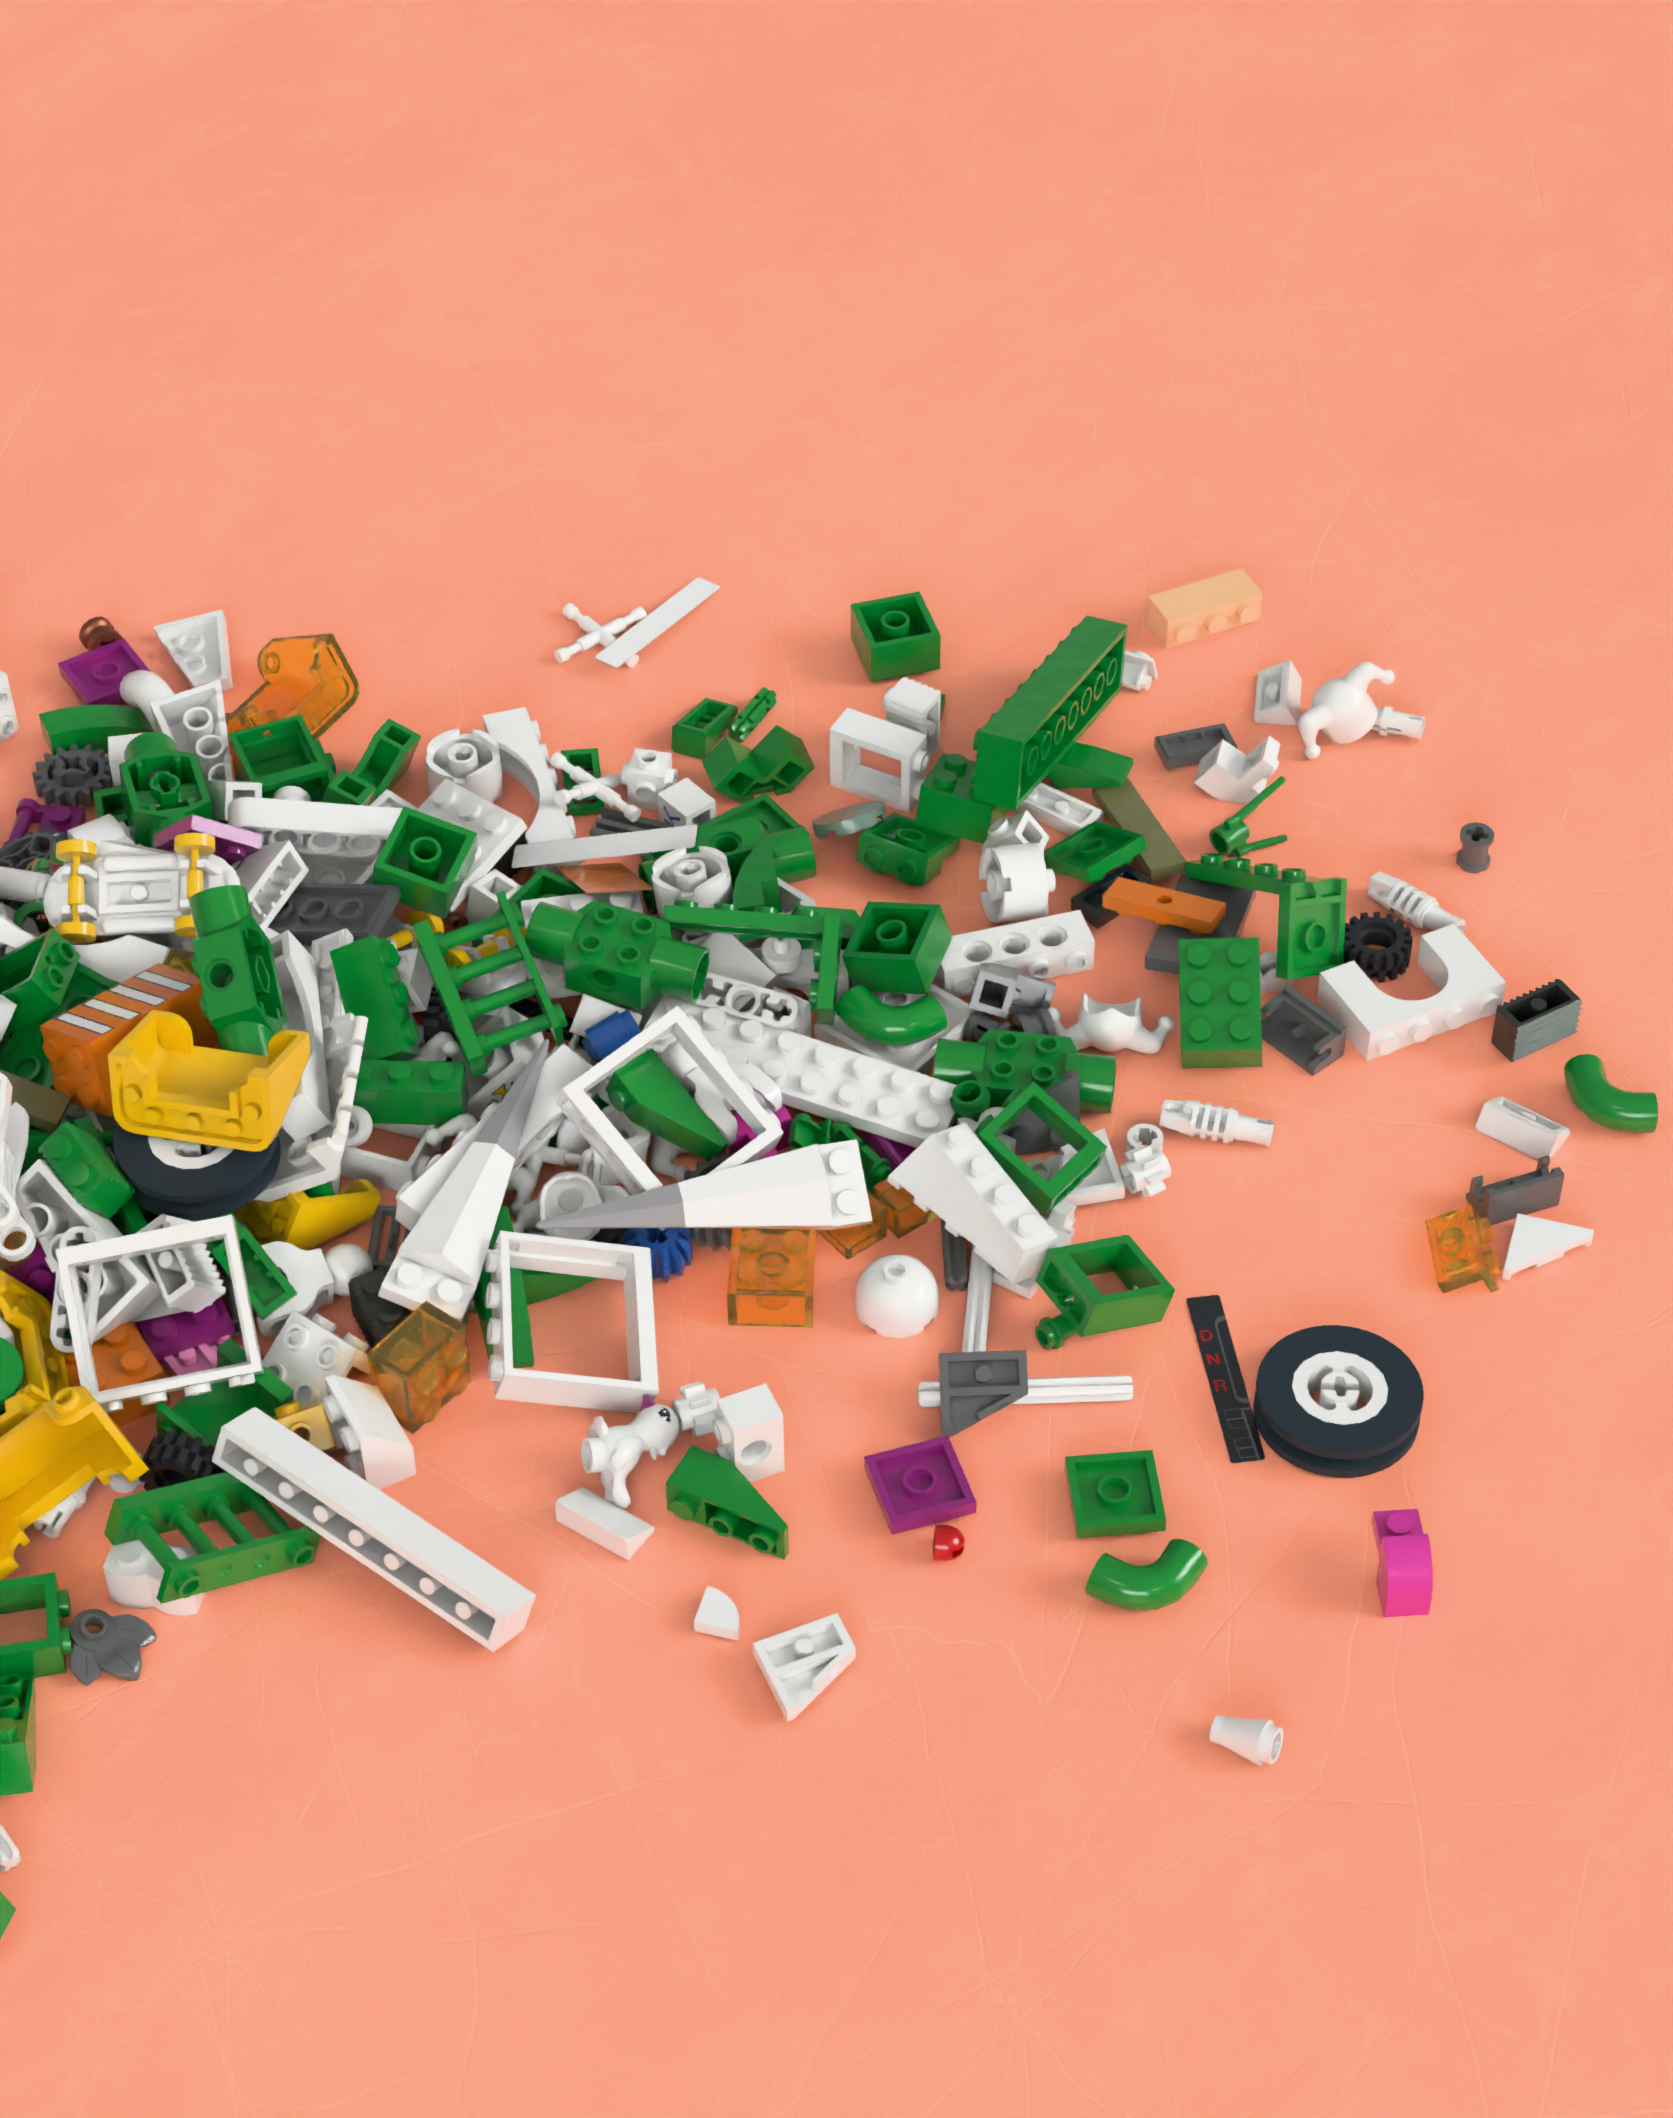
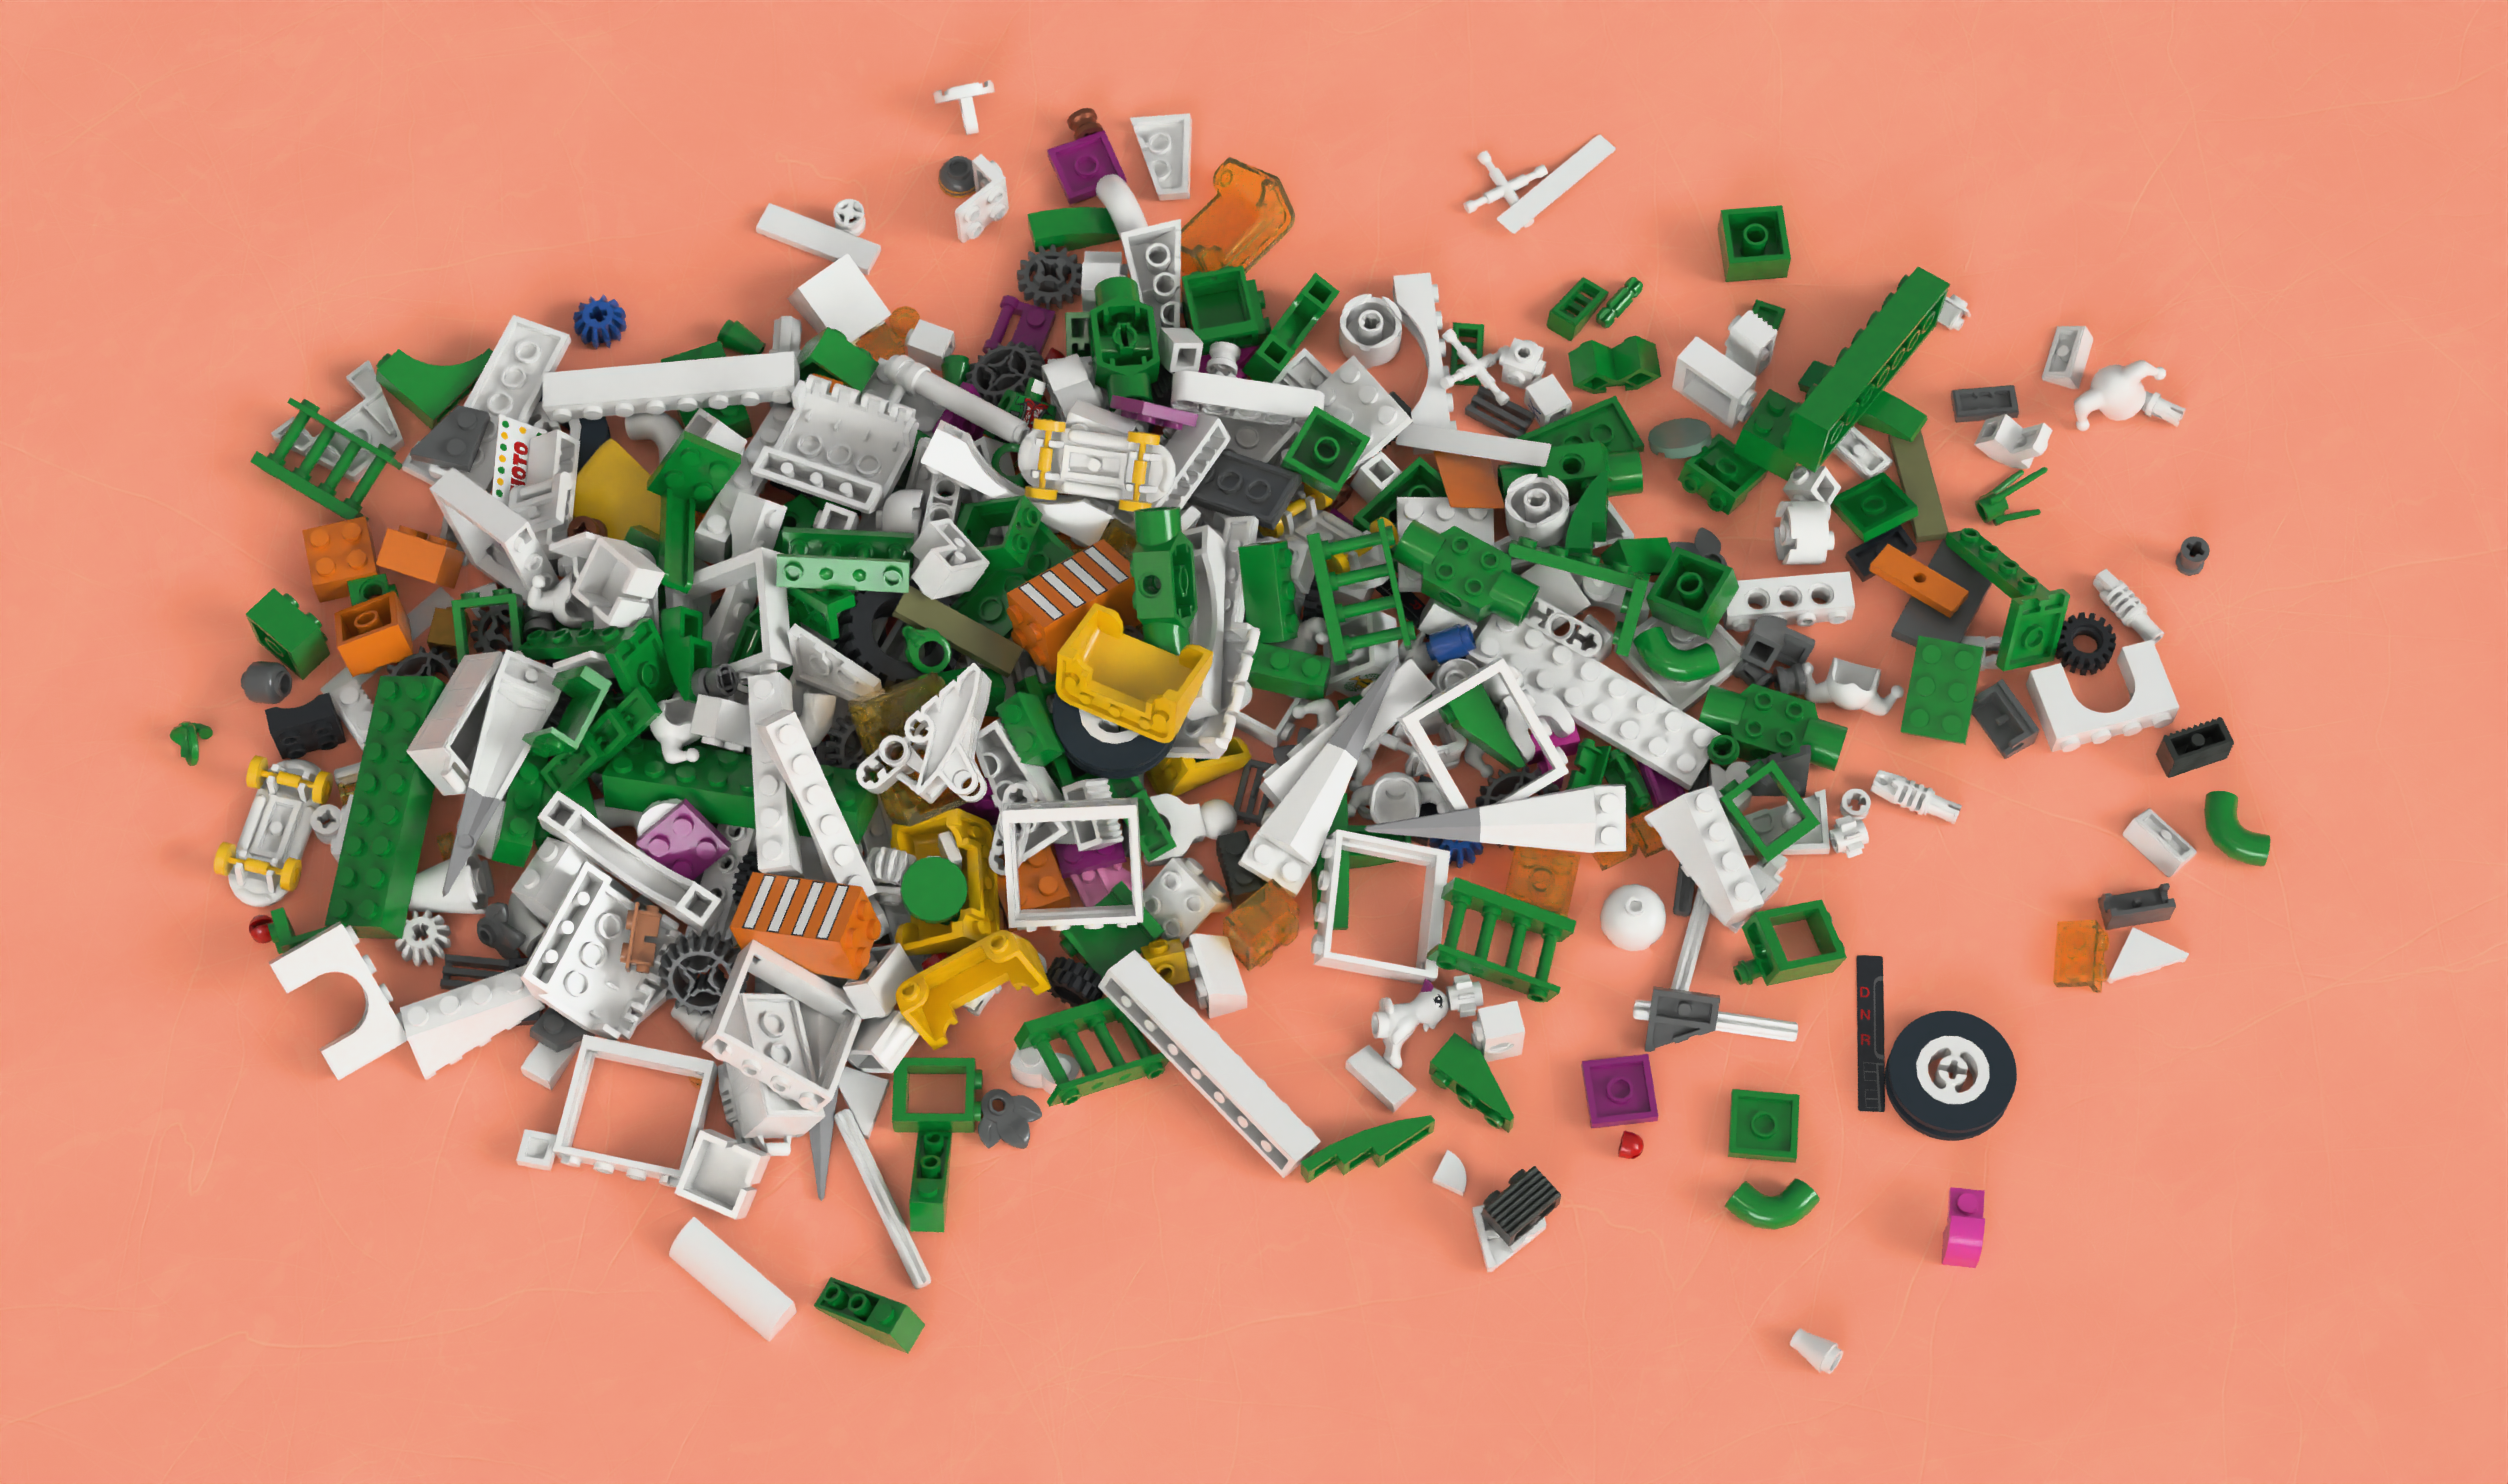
camera: 10 degrees right, 20 degrees up
(611, 1591) = (1378, 1143): none -> green slope
(739, 1303) = (1522, 918): none -> green fence
(816, 1623) = (1520, 1205): none -> pearl dark grey brick
(1204, 608) = (2026, 252): light nougat brick -> none

